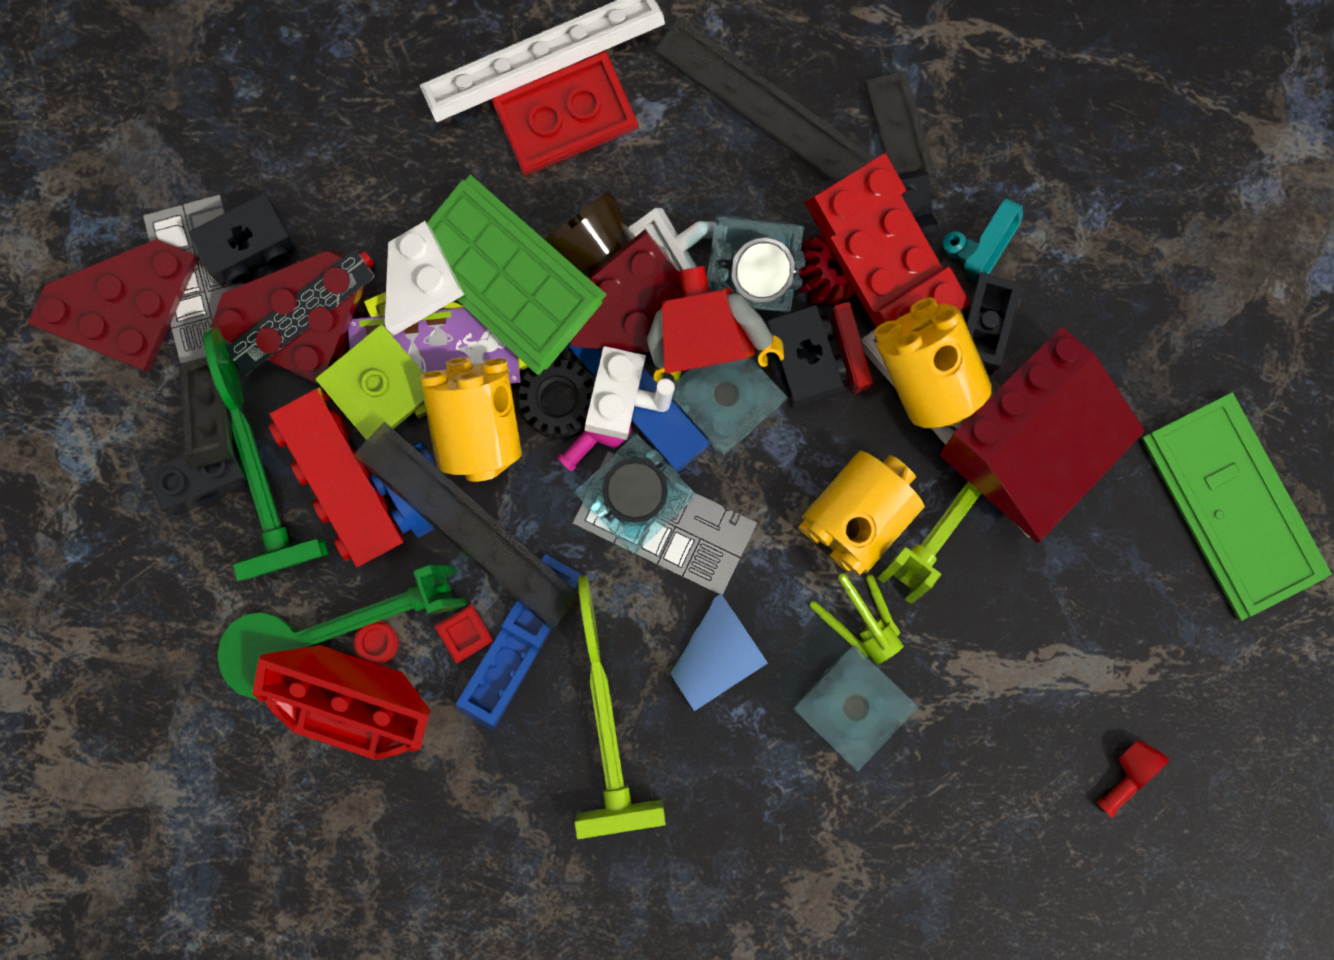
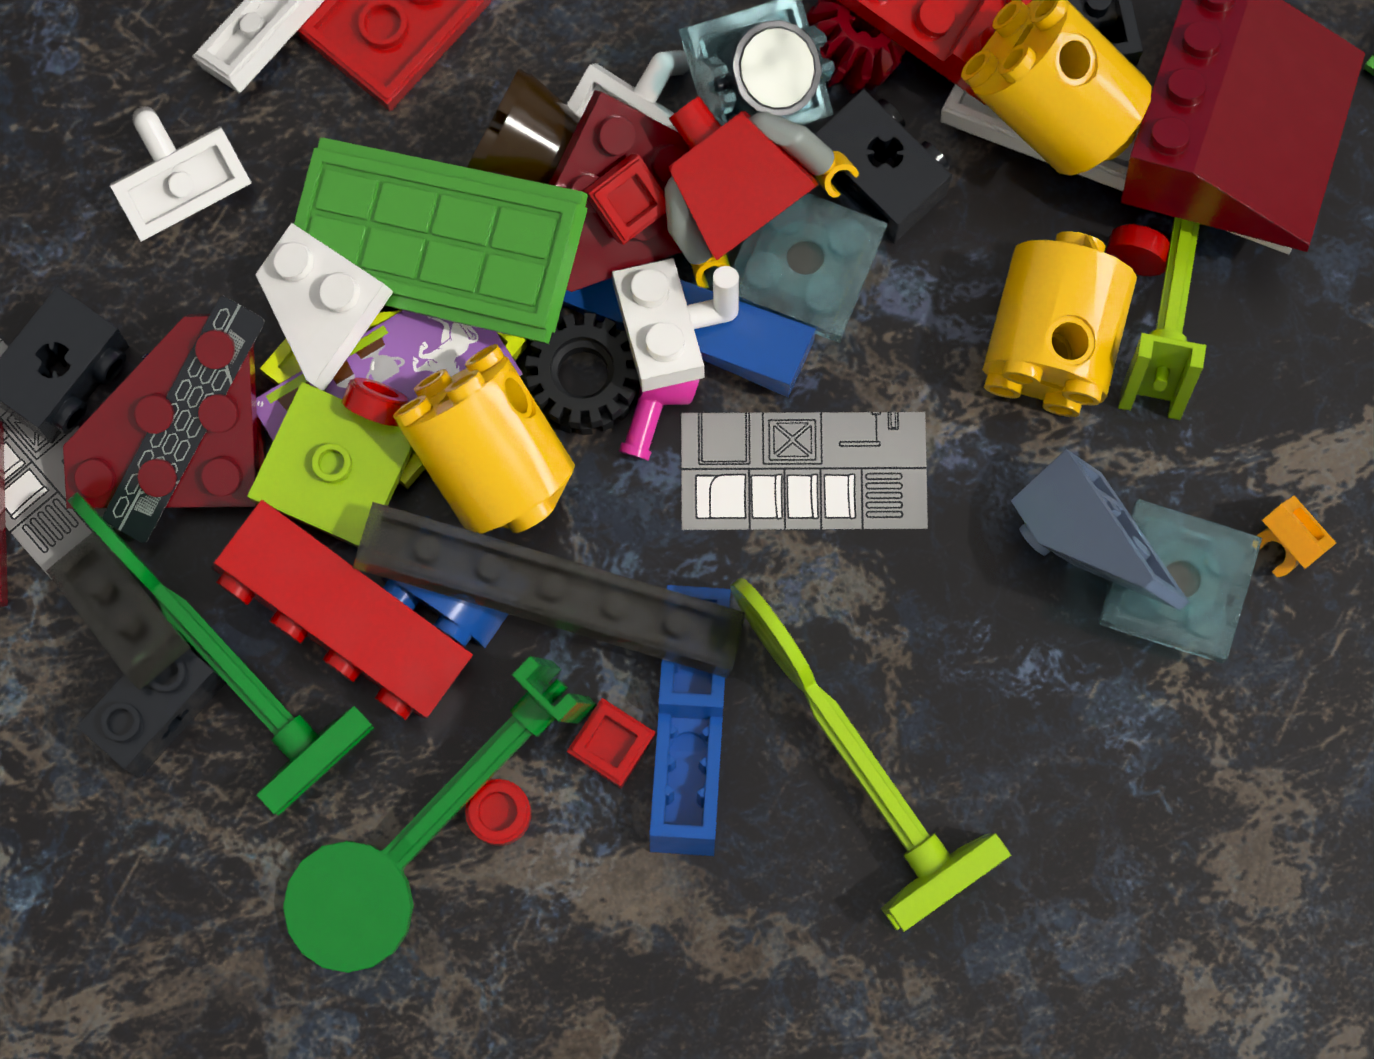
camera: 25 degrees left, 5 degrees down
(342, 701) = (497, 908): red wedge -> none
(372, 159) = (177, 179): none -> white plate
(418, 357) = (373, 400): none -> red tile
(631, 306) = (627, 198): none -> red tile
(635, 494) = (748, 447): piece -> none
(716, 656) = (961, 607): medium blue slope -> none
(813, 642) = (1086, 524): none -> sand blue slope
(851, 348) = (936, 125): red tile -> none
(879, 639) = (1163, 476): lime plant -> none
(938, 487) = (1140, 249): none -> red tile
(945, 713) = (1298, 534): none -> light orange tile

